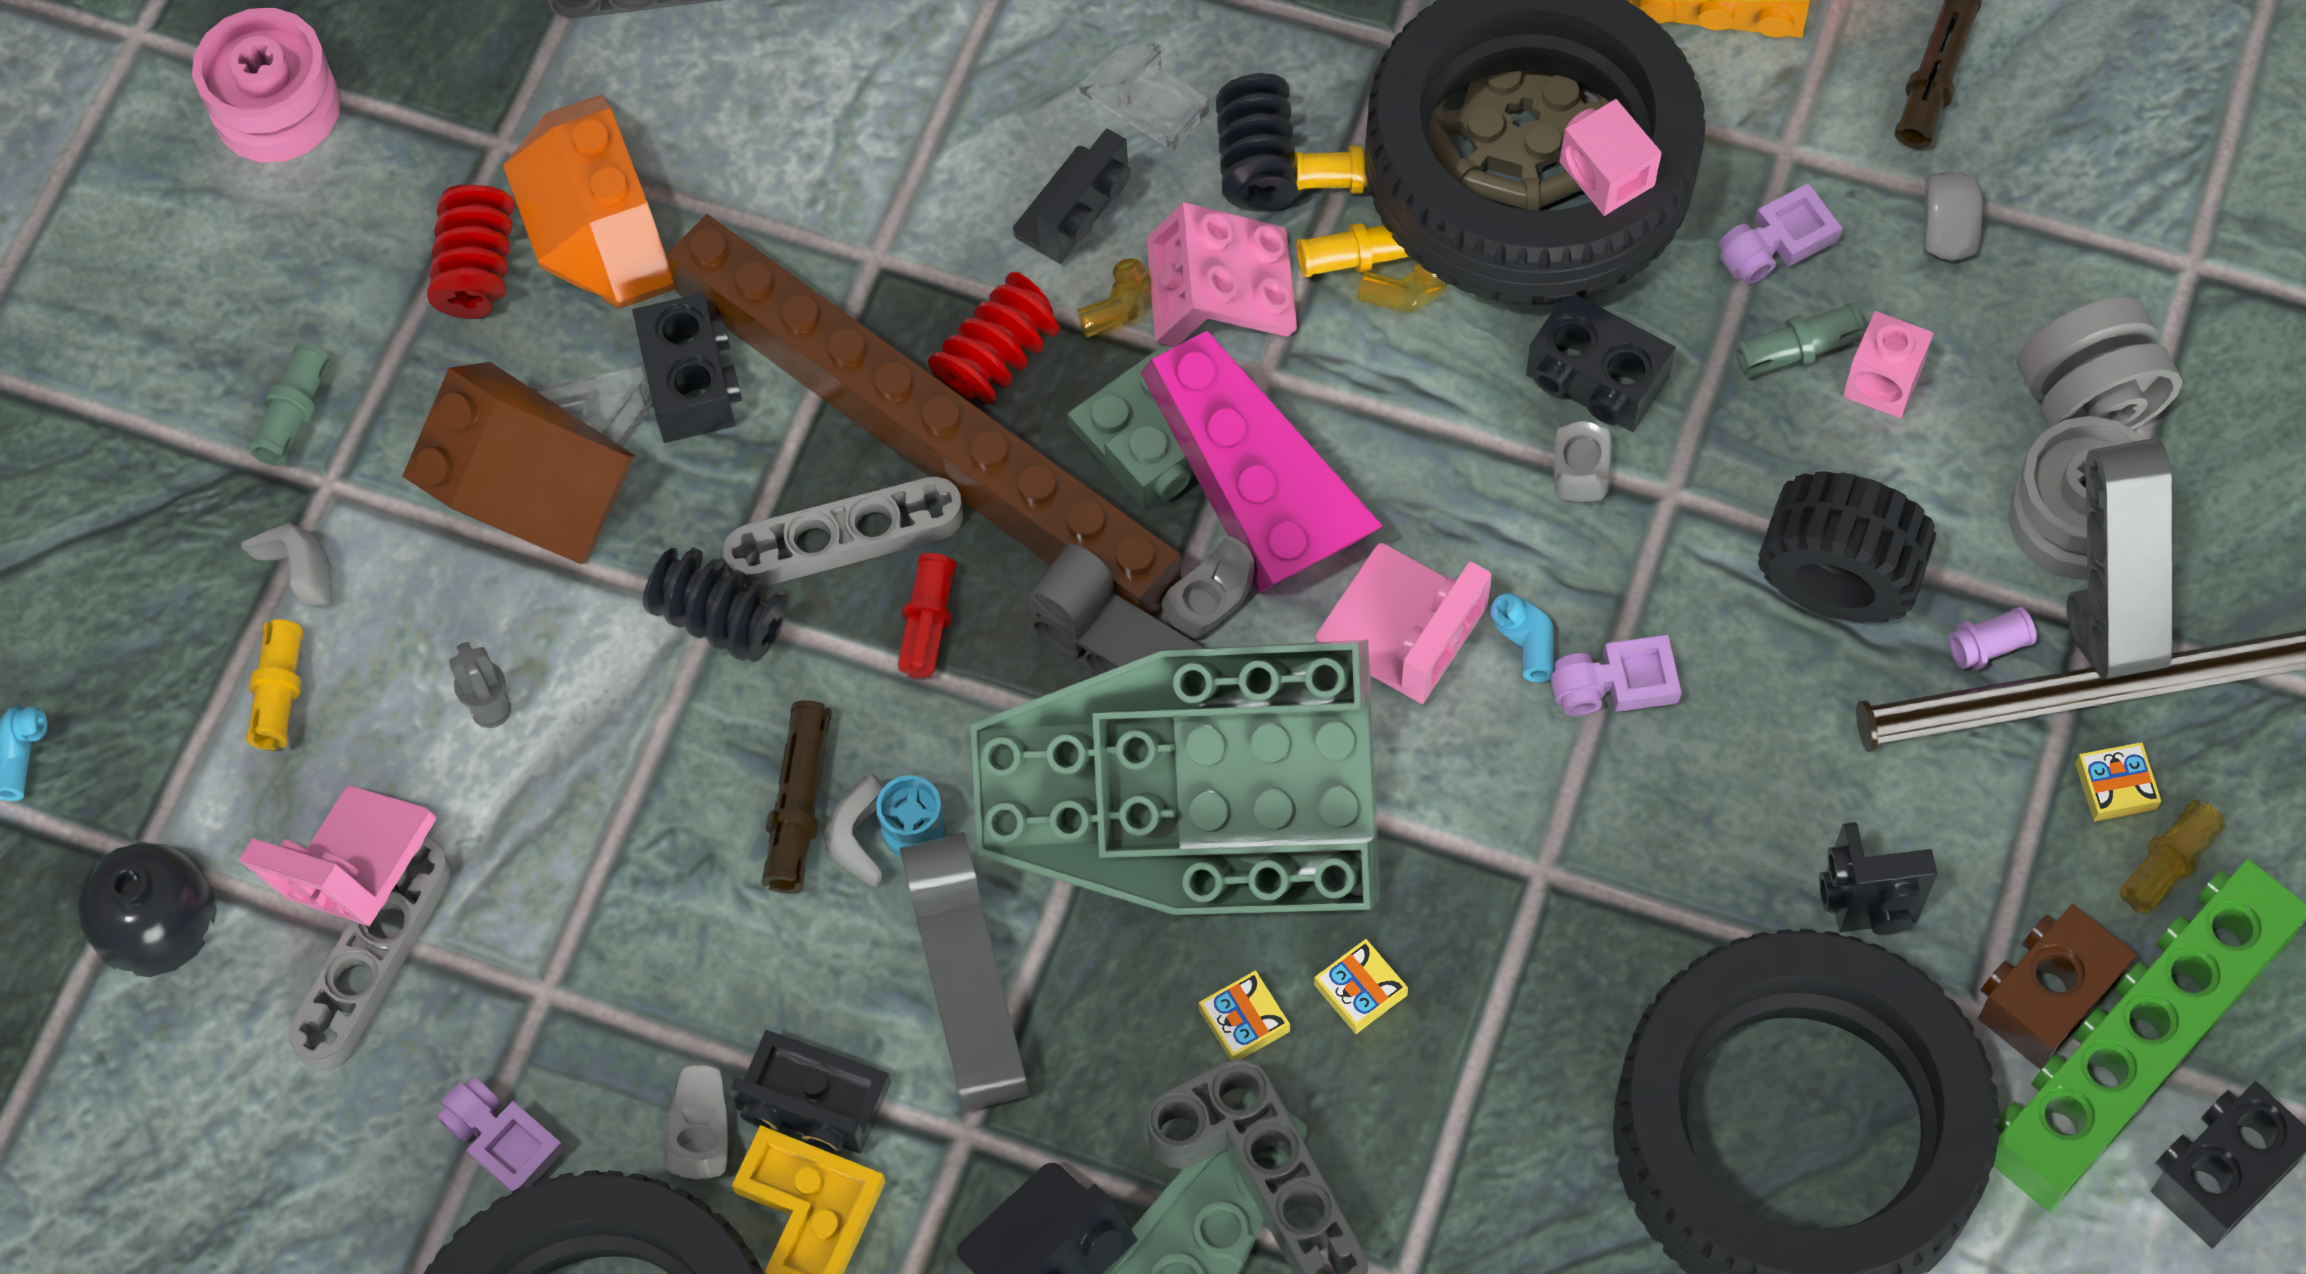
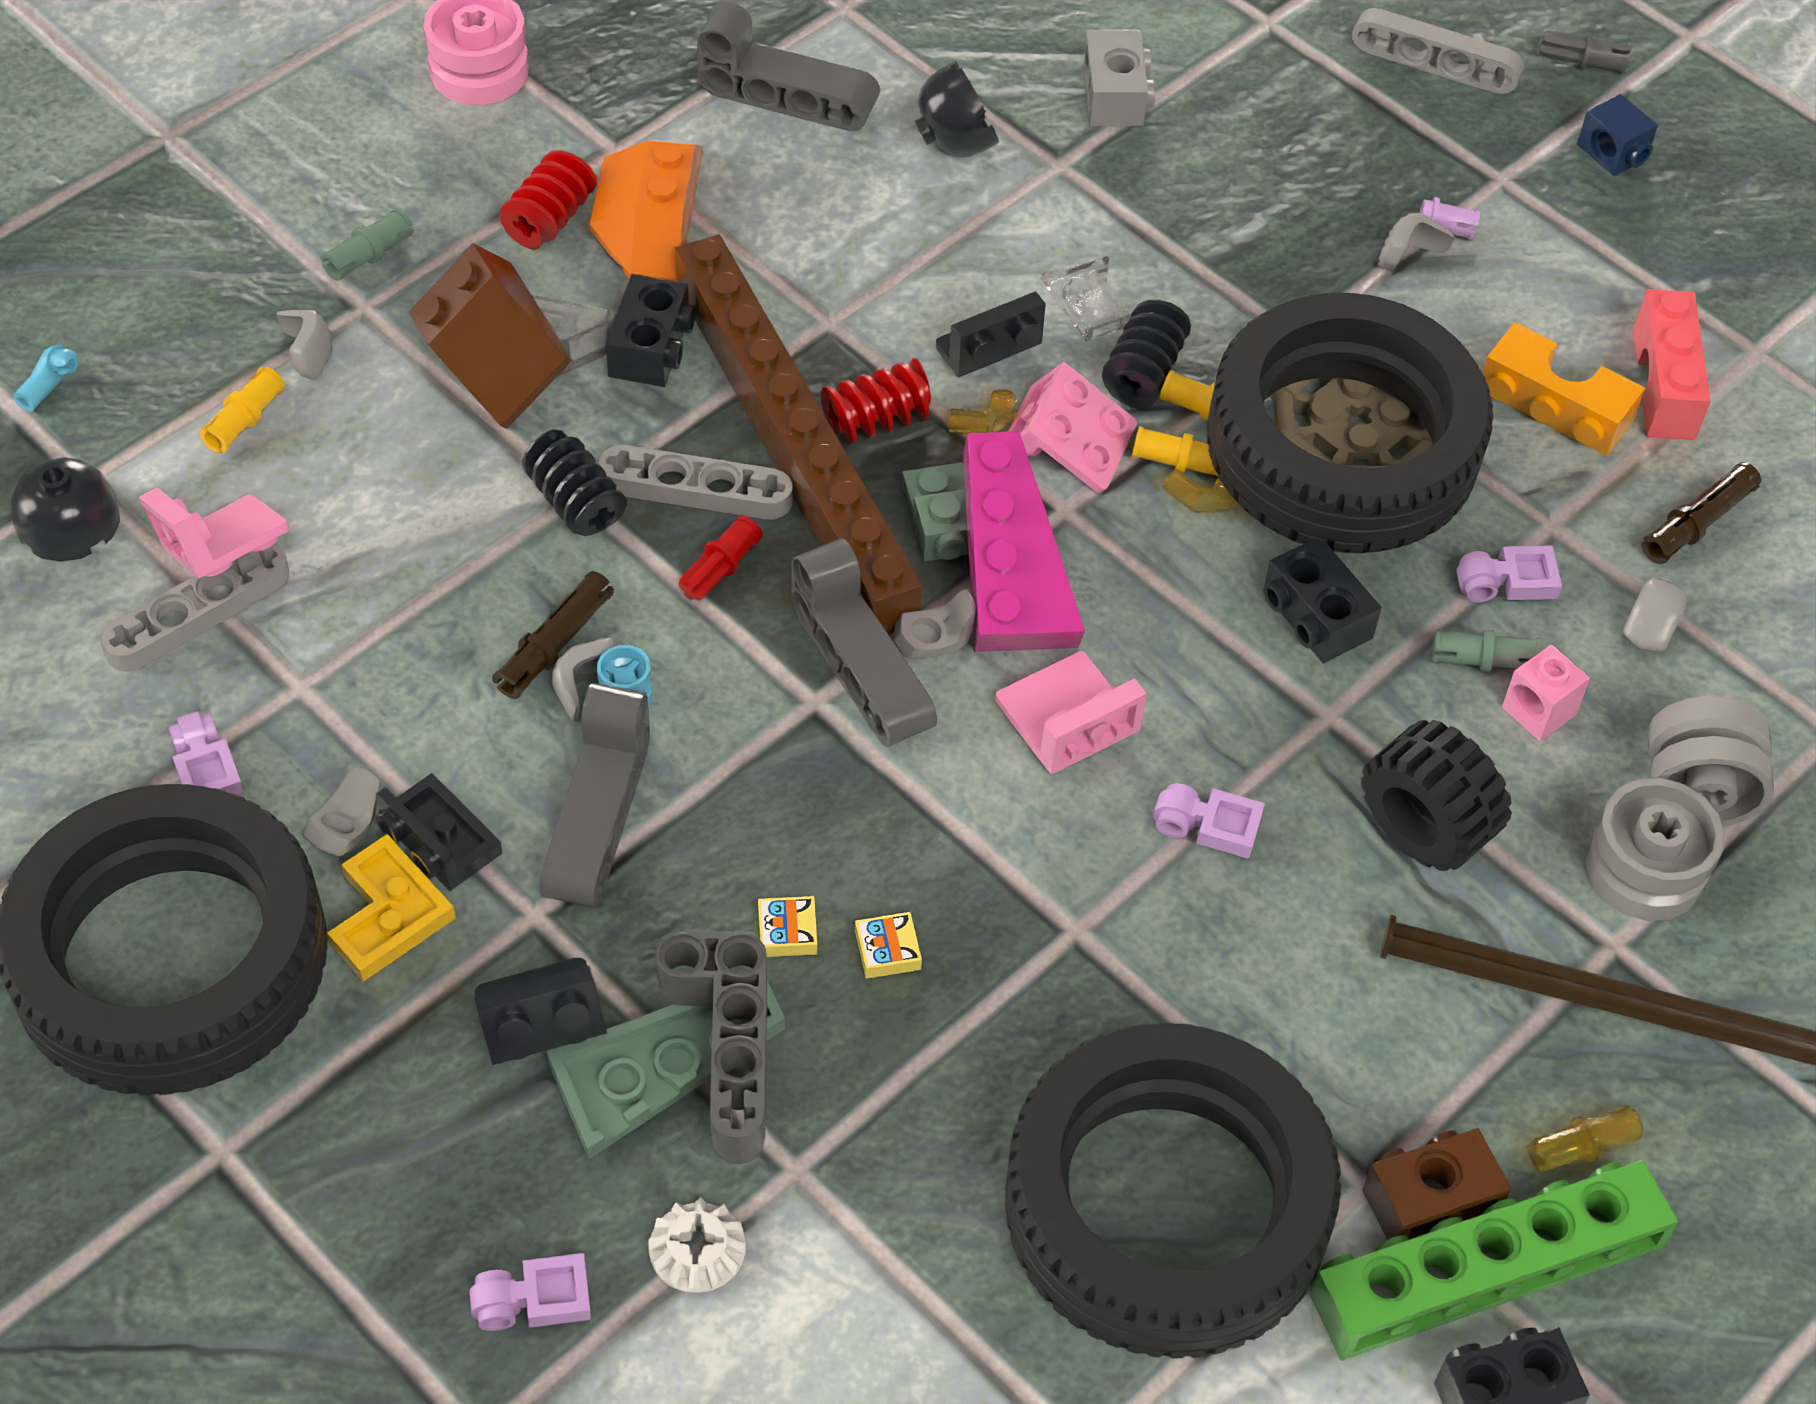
camera: 20 degrees right, 10 degrees down
(480, 686) = (375, 462): dark grey axle -> none
(1193, 781) = (844, 738): sand green wedge -> none
(1528, 630) = (1160, 757): medium azure arm -> none
(1582, 462) = (1269, 662): light grey hair -> none
(1609, 156) = (1389, 437): bright pink brick -> none
(1875, 891) = (1326, 1044): black bracket -> none
(1979, 642) = (1523, 919): lavender pin -> none
(2118, 782) = (1572, 1067): tile -> none
(2127, 609) = (1652, 885): beam -> none

